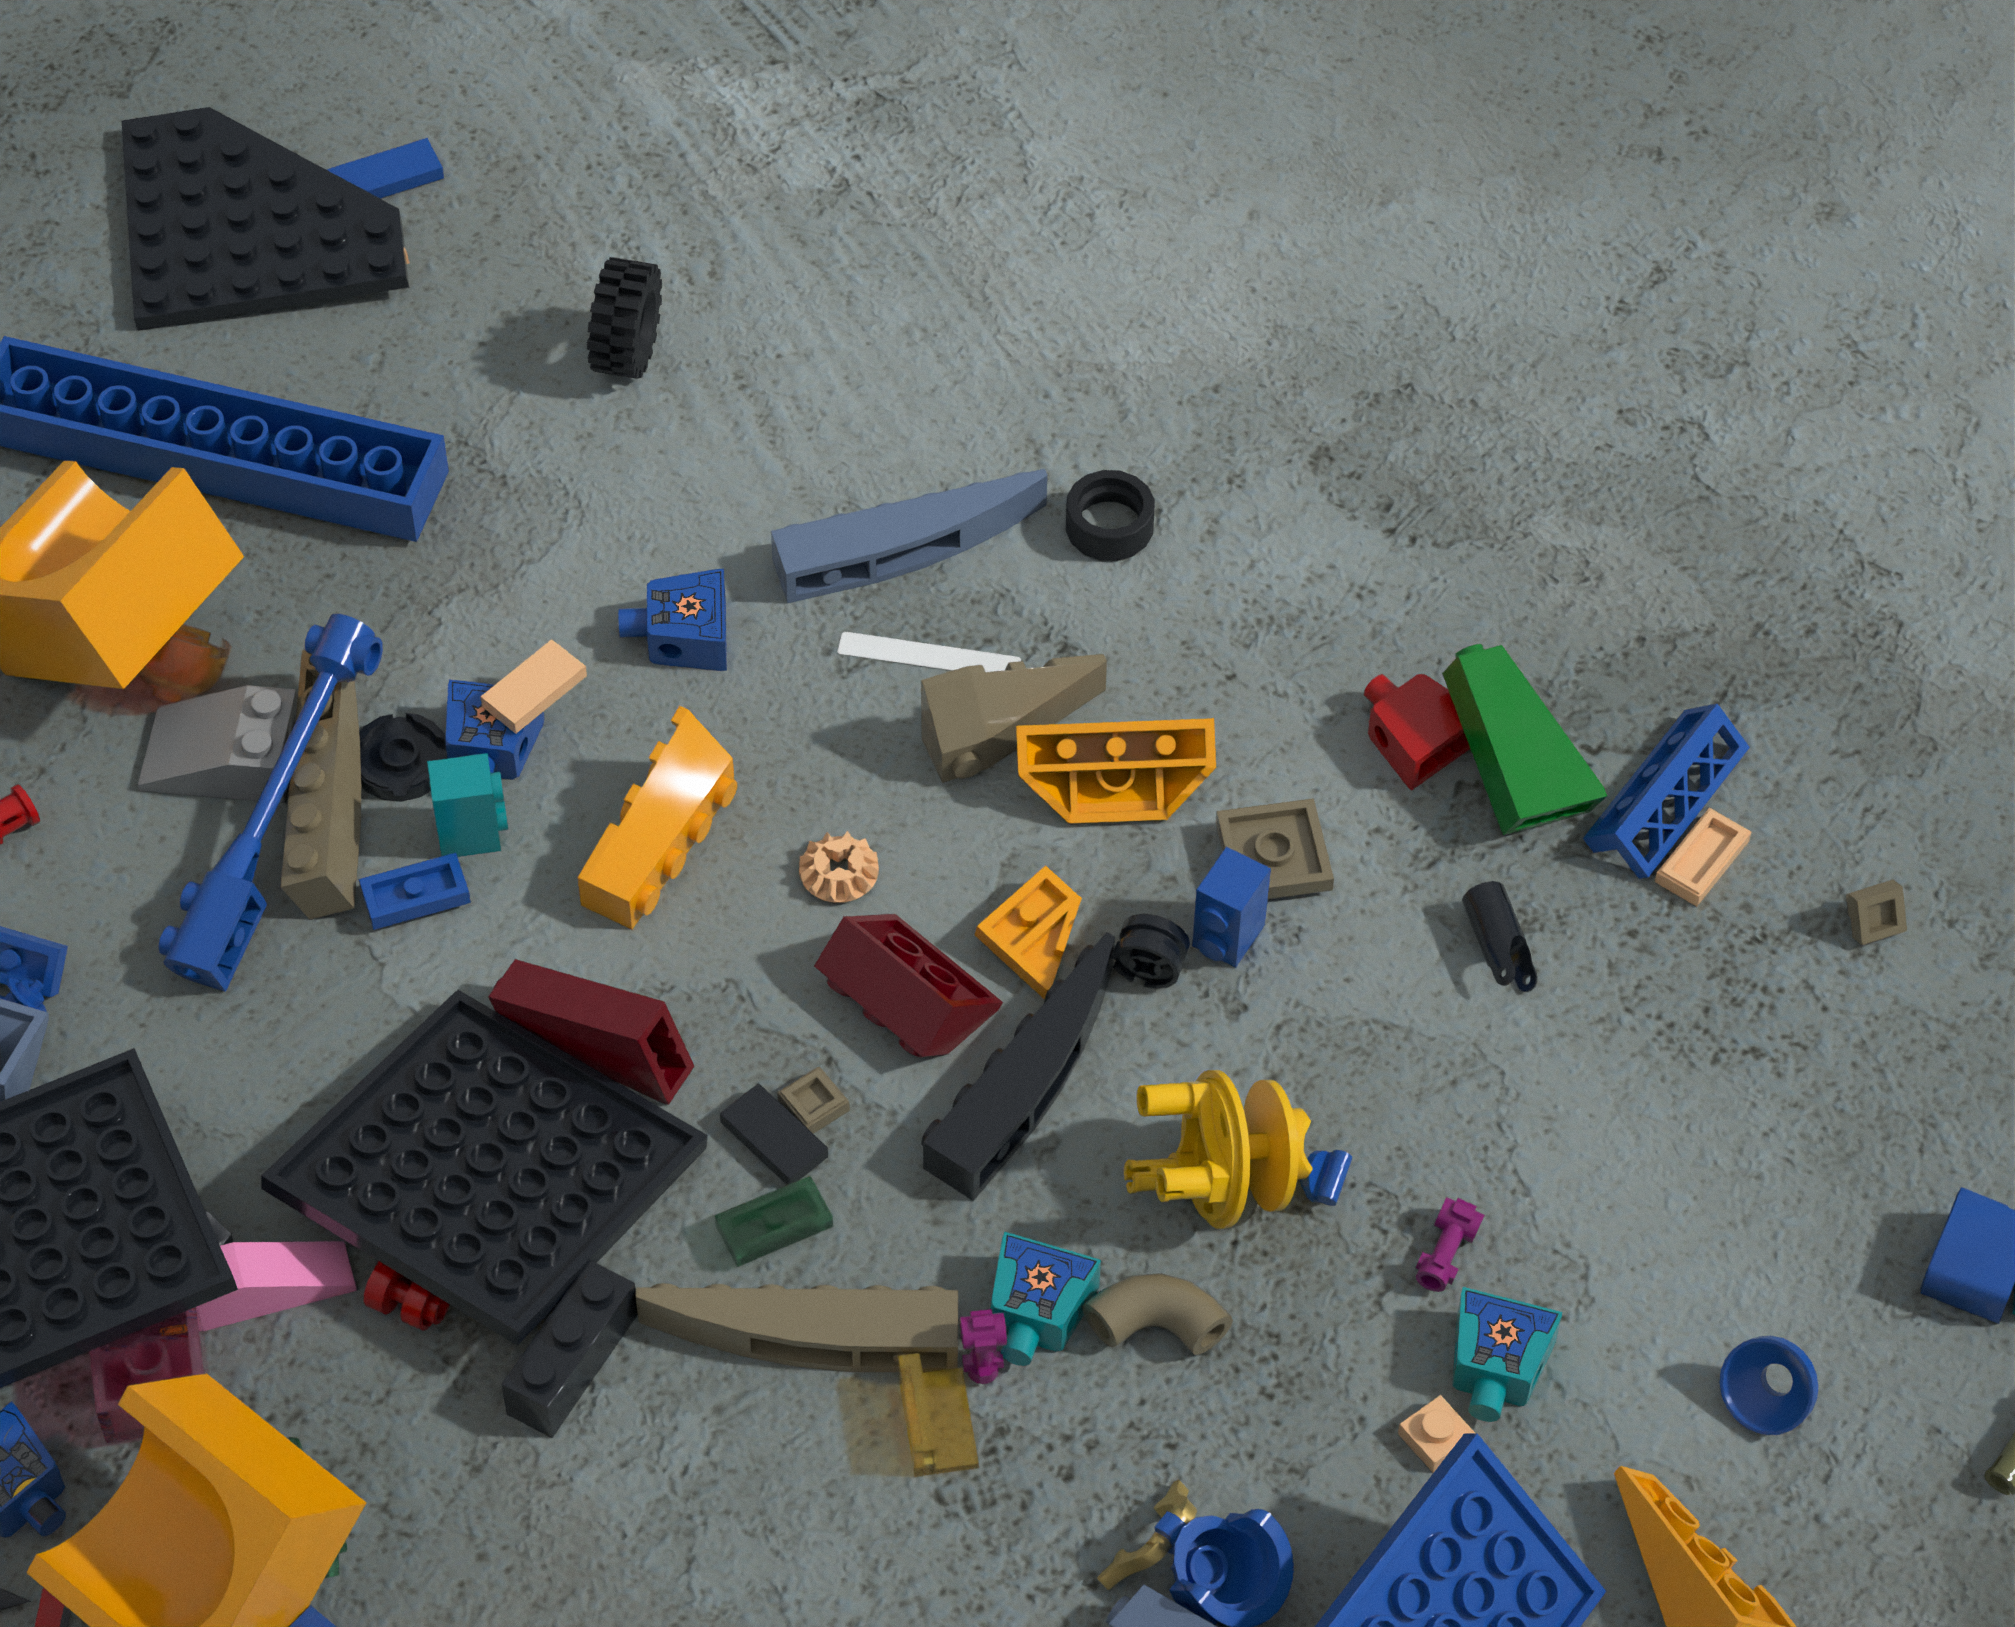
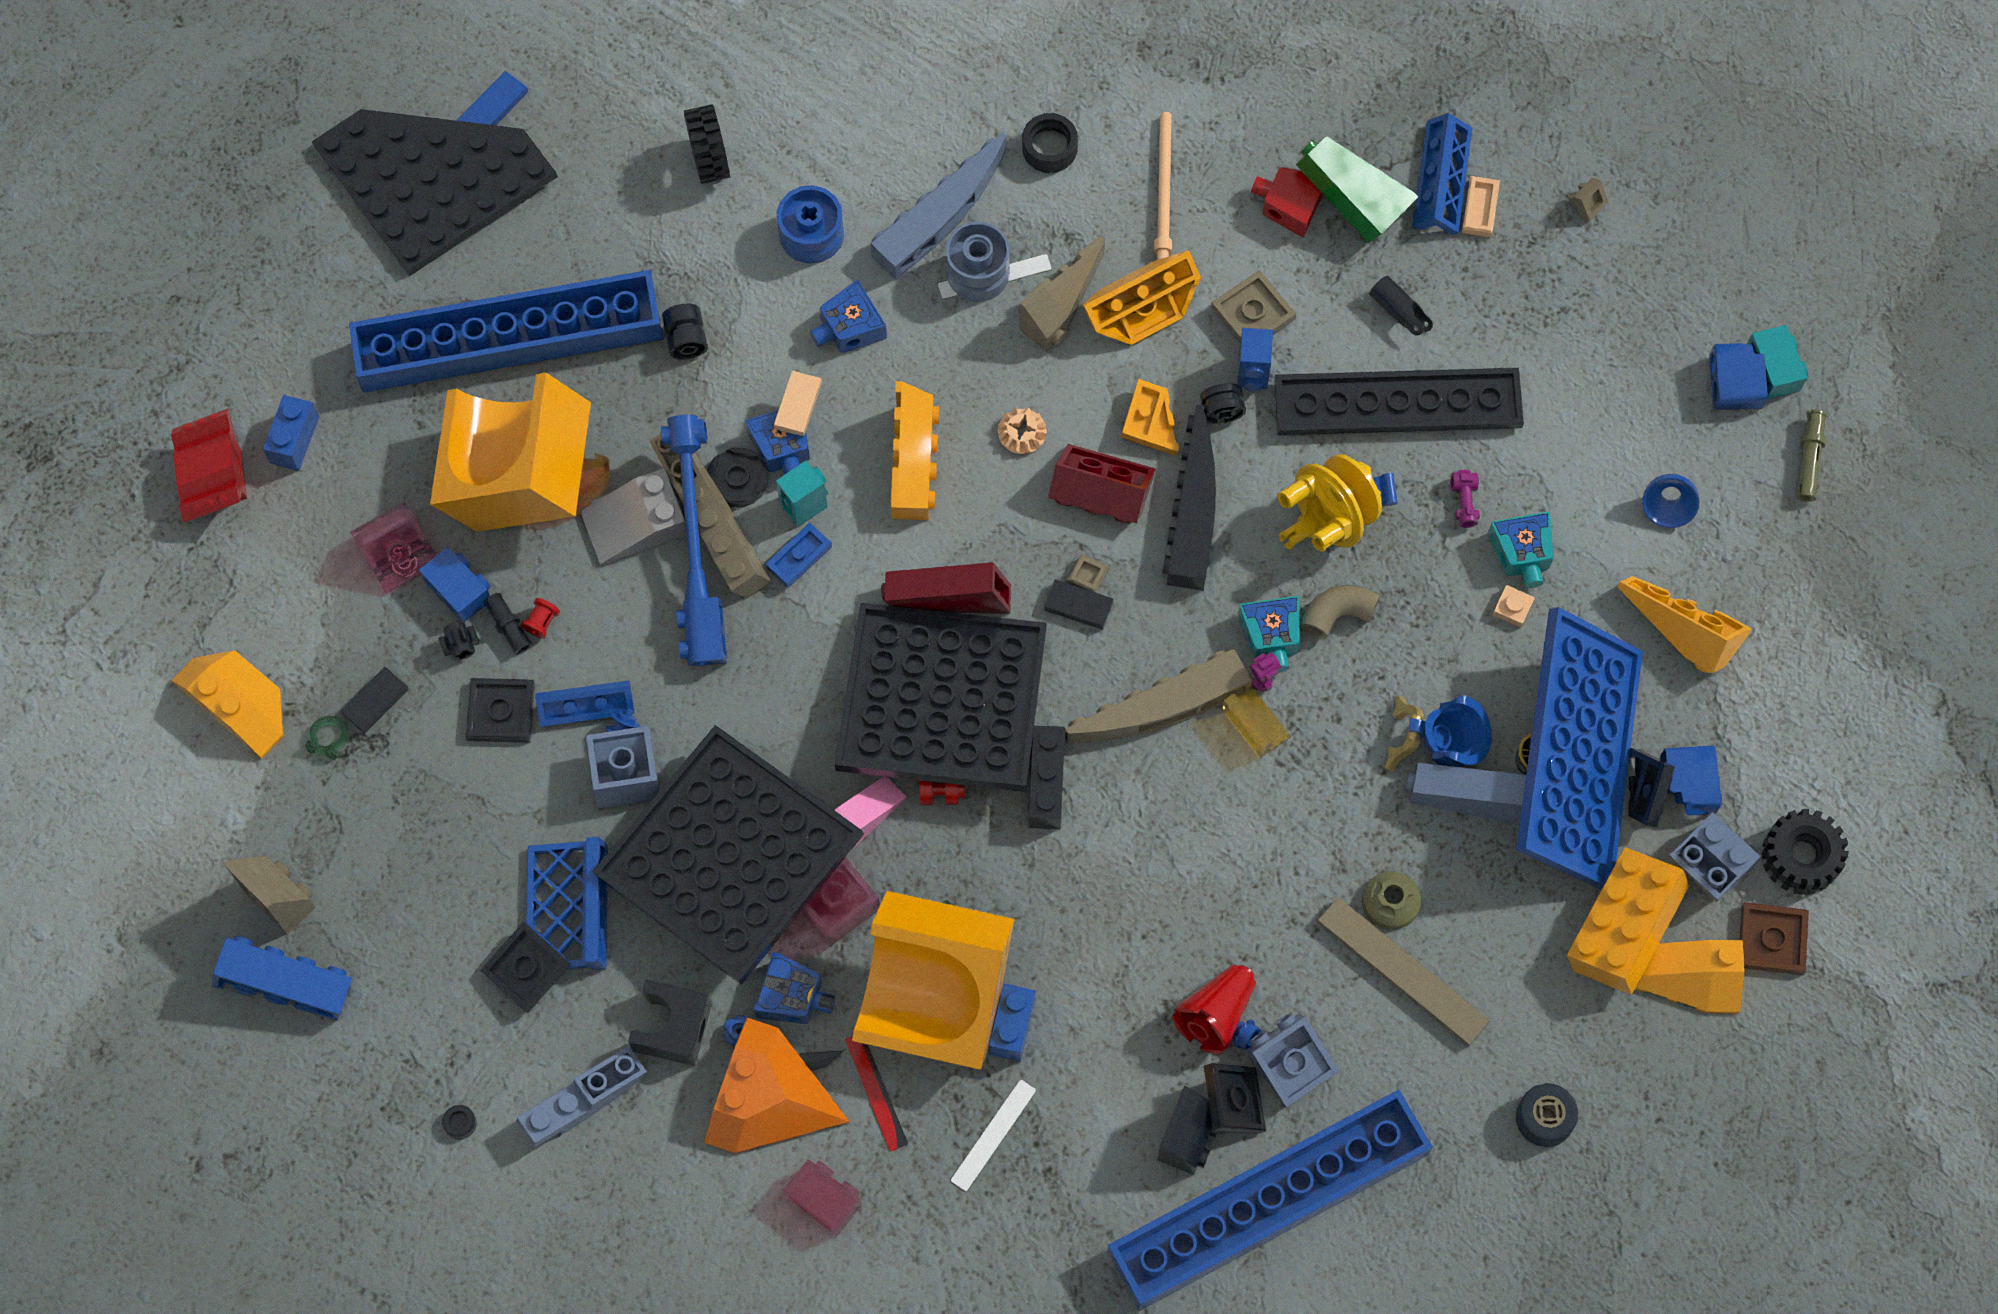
camera: 25 degrees left, 15 degrees up
(447, 539) = (685, 331): none -> black wheel
(706, 477) = (810, 224): none -> blue wheel
(774, 1221) = (1109, 654): clear green plate -> none
(908, 616) = (978, 261): none -> sand blue wheel
(1198, 705) = (1163, 243): none -> light nougat bar
(1423, 1065) = (1398, 401): none -> black plate

